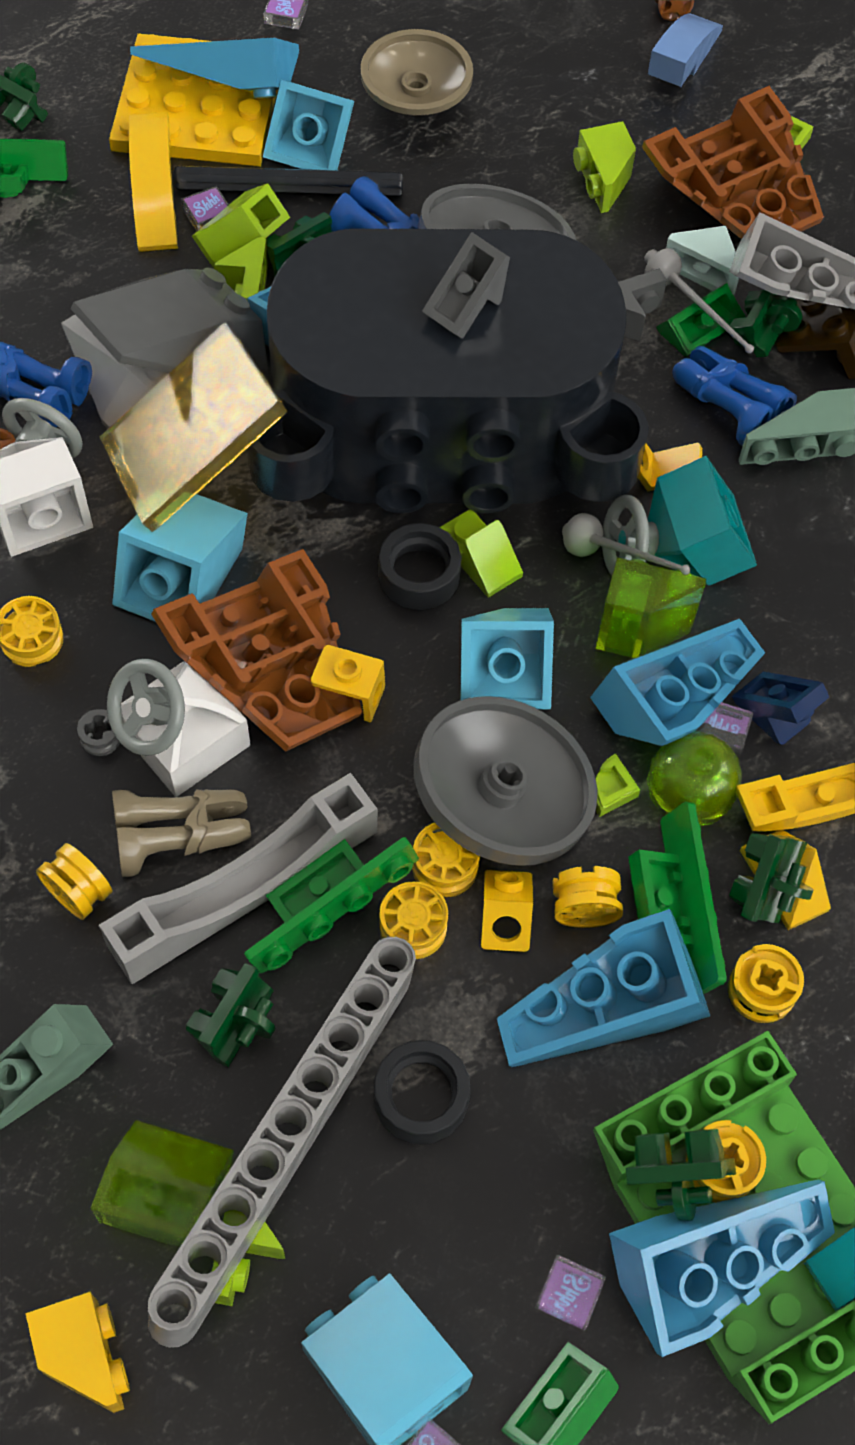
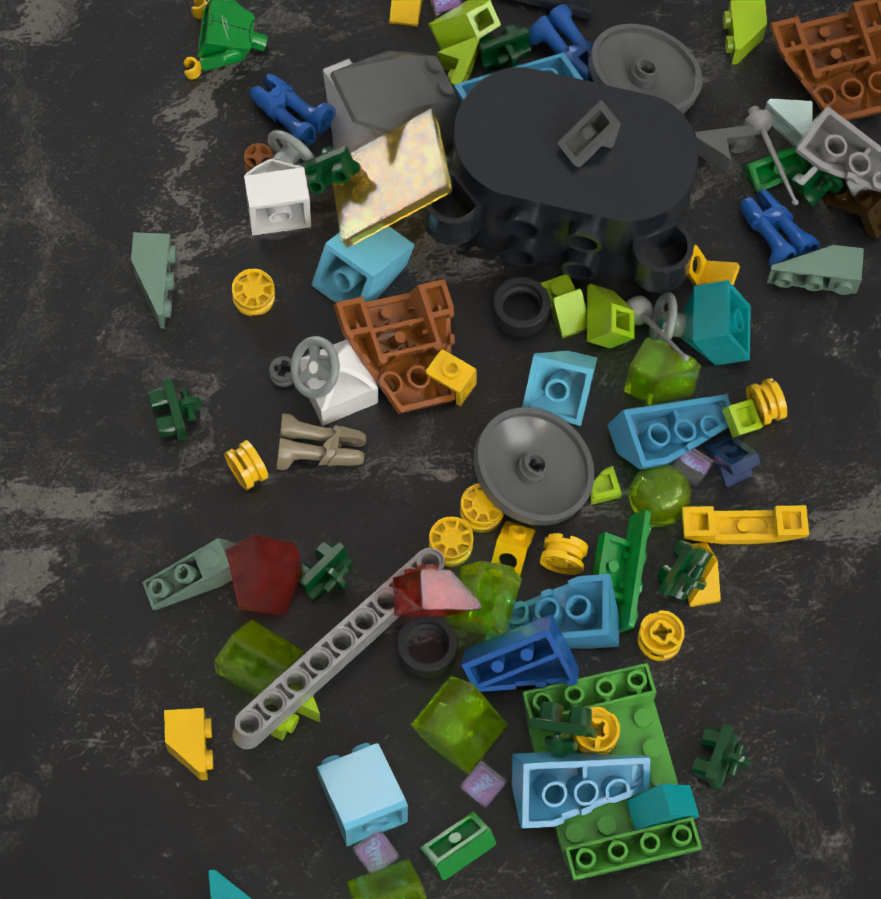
camera: 15 degrees right, 5 degrees up
(102, 434) = (329, 168): none -> dark green hips
(139, 1042) = (264, 573): none -> clear red slope
(175, 921) = (304, 505): light grey arch -> none
(325, 893) = (398, 511): green bracket -> none
(413, 1006) = (431, 593): none -> clear red slope
(489, 994) = (497, 591): none -> clear neon green slope
(507, 1203) = (459, 723): none -> clear neon green slope
(547, 553) = (608, 318): none -> lime slope
(575, 1073) = (522, 657): none -> blue wedge
(774, 644) = (742, 418): none -> lime plate
(802, 612) = (768, 400): none -> yellow wheel

